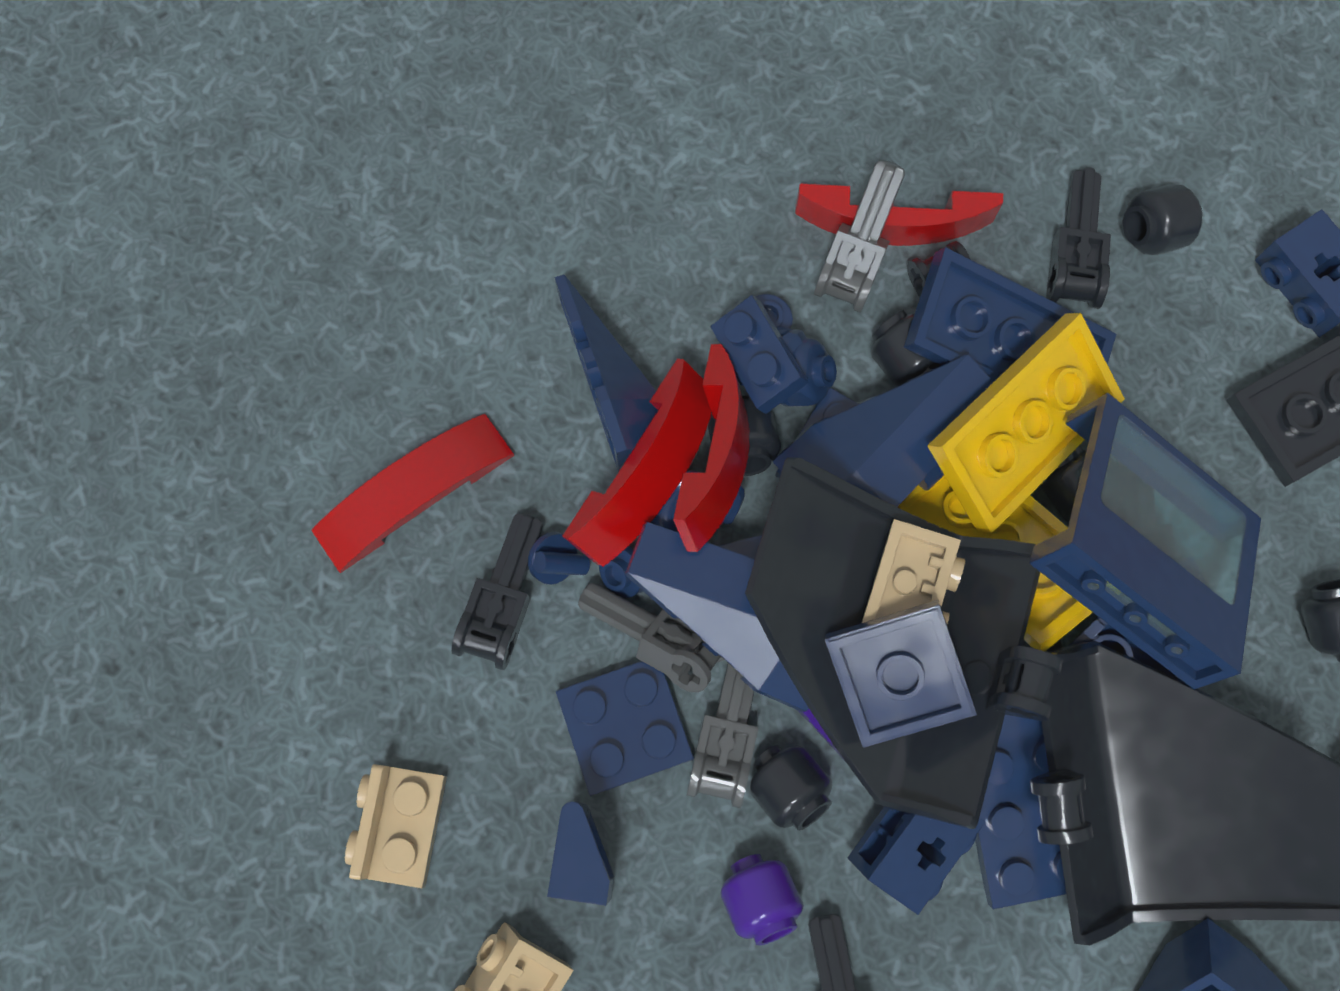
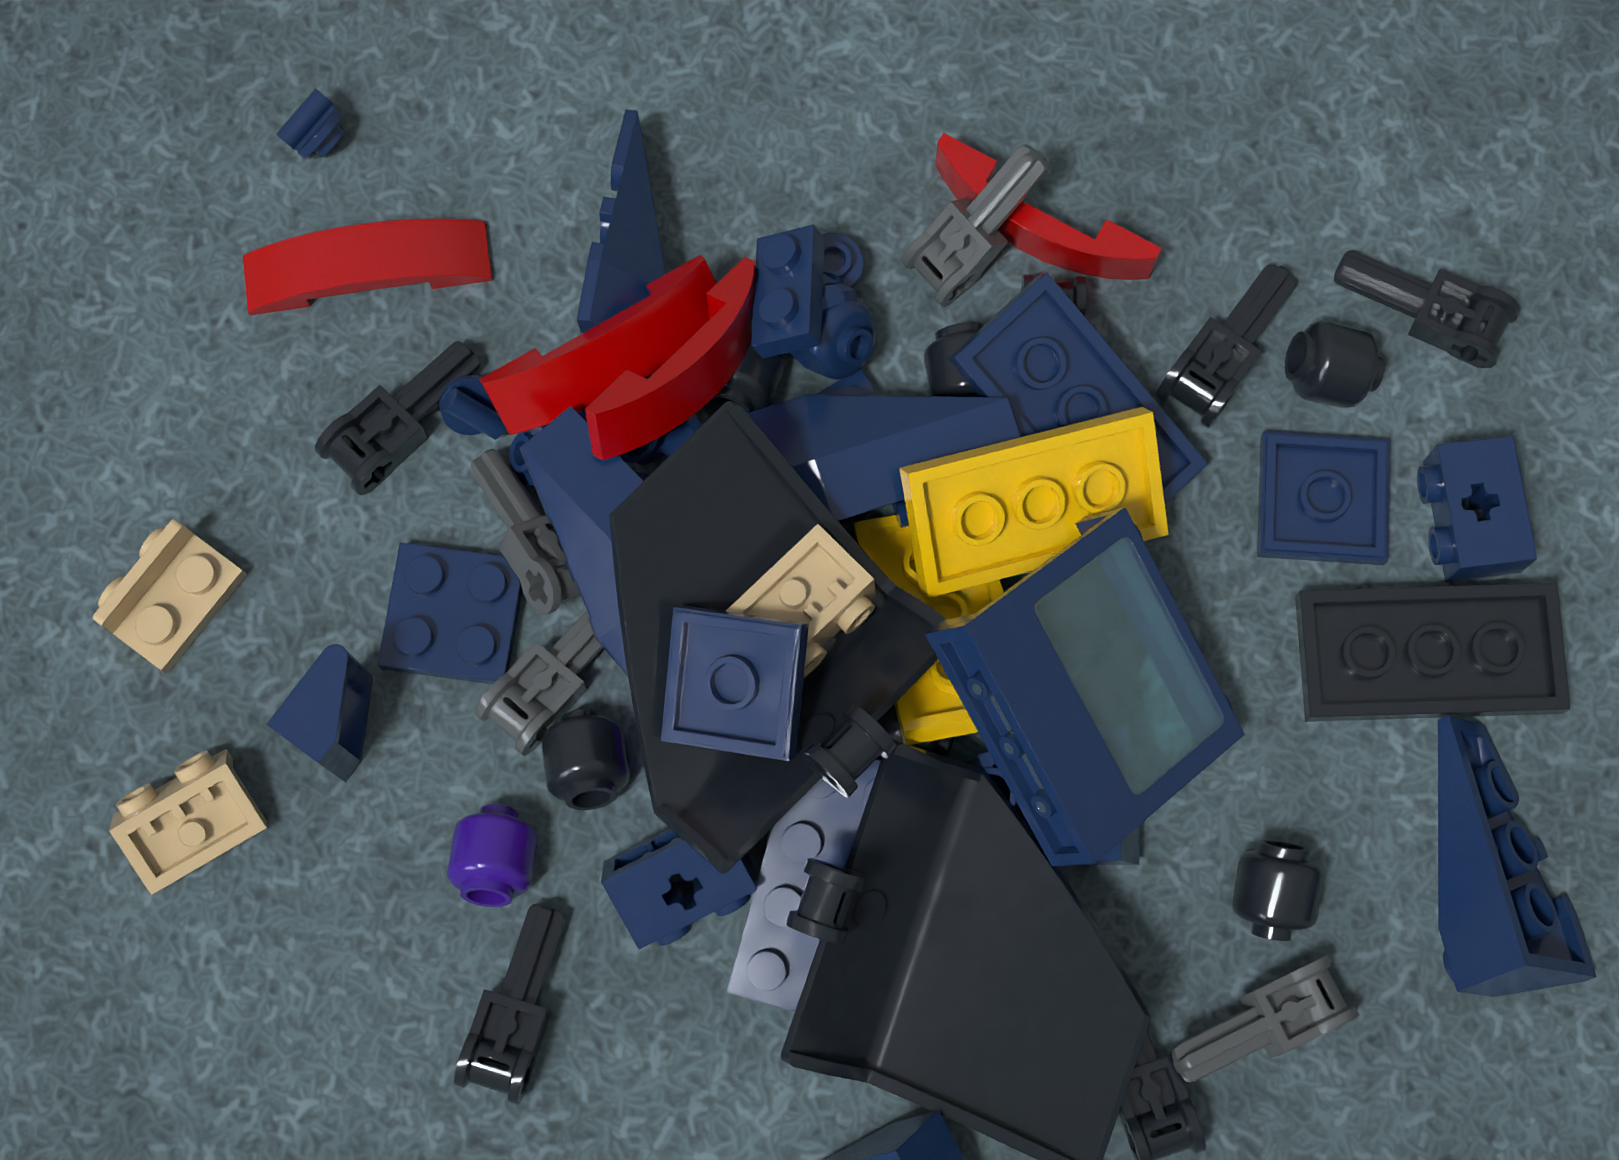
camera: 30 degrees right, 0 degrees up
(316, 404) = (313, 126): none -> dark blue plate
(1205, 319) = (1323, 498): none -> dark blue tile
(1214, 145) = (1444, 312): none -> black connector

